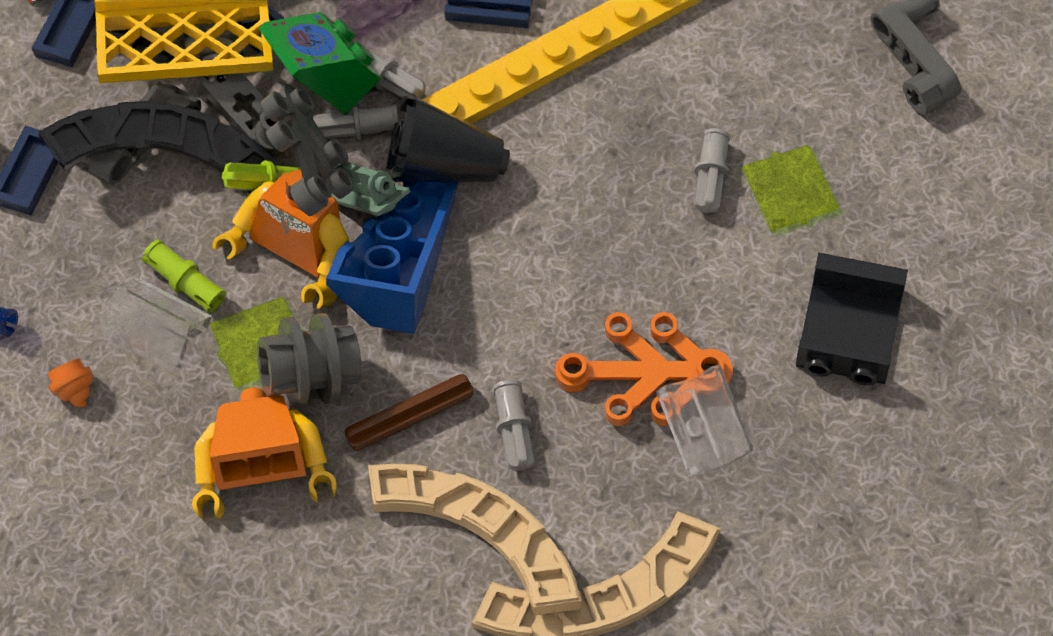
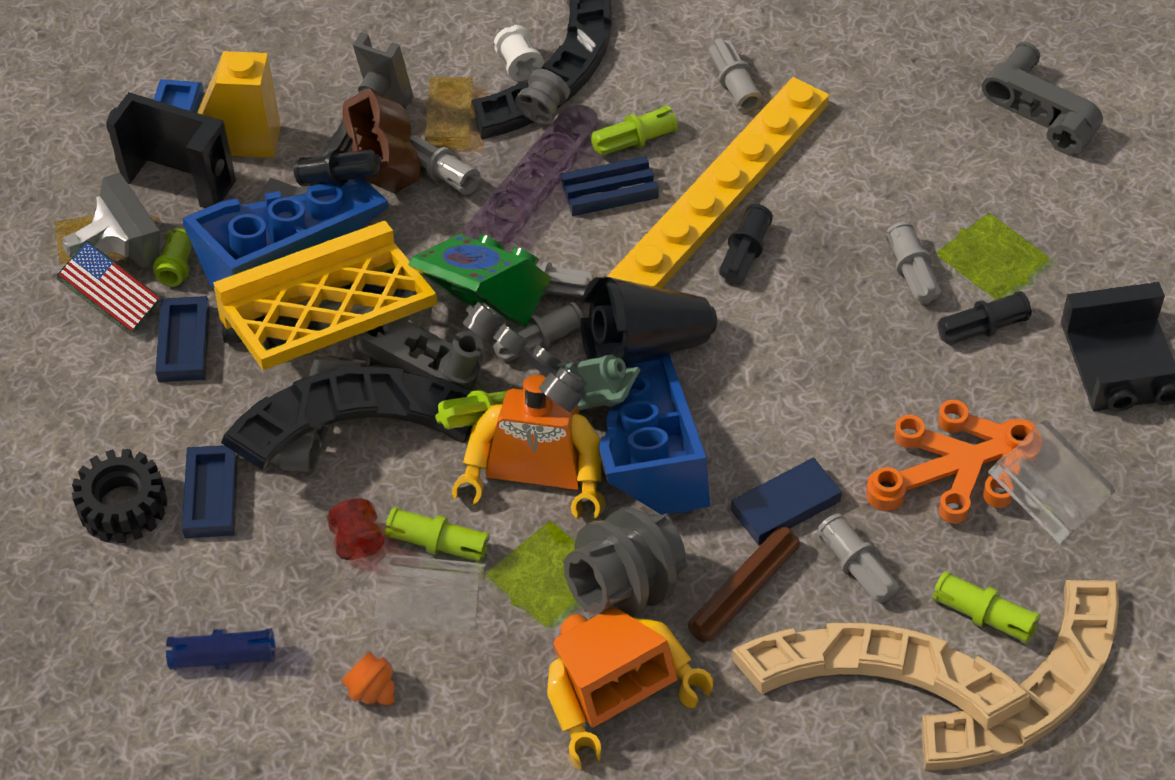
camera: 25 degrees left, 10 degrees down
(120, 247) = (355, 529): none -> clear red wheel
(484, 350) = (786, 500): none -> dark blue tile
(575, 101) = (745, 243): none -> black axle
(595, 509) = (986, 607): none -> lime pin
(743, 246) = (985, 318): none -> black axle

